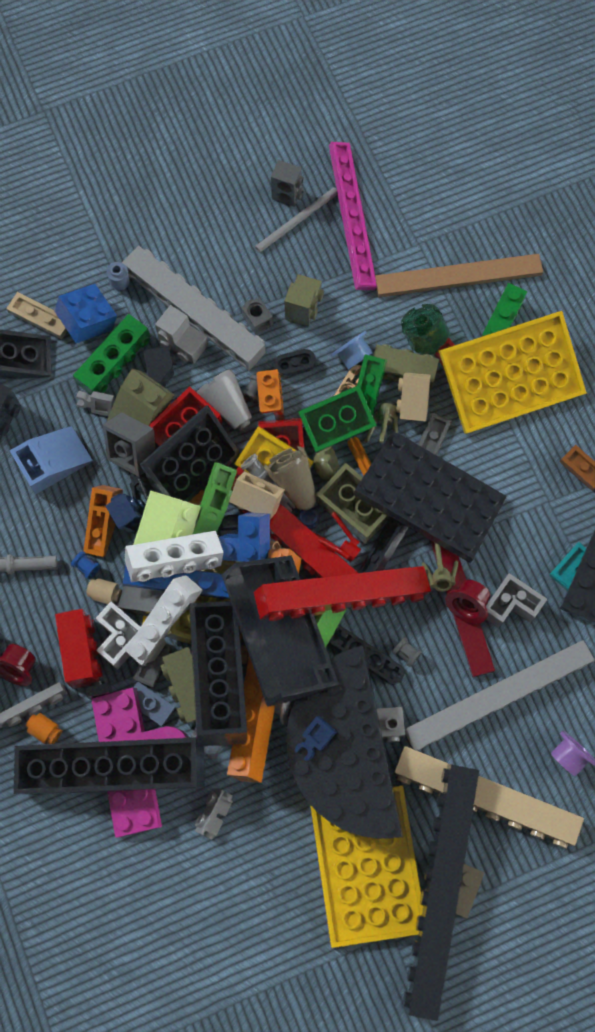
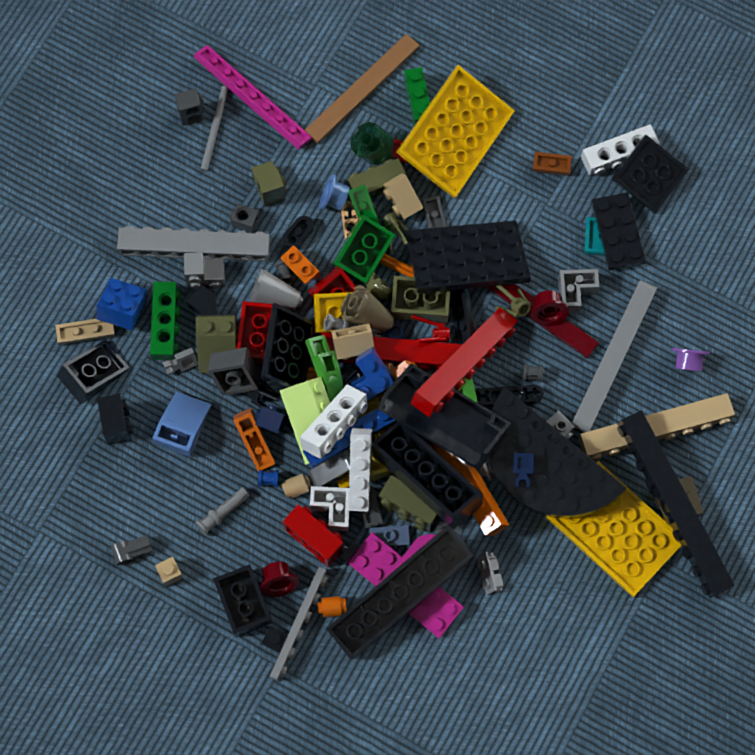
camera: 40 degrees left, 0 degrees up
(118, 276) = (121, 260): sand blue brick -> none

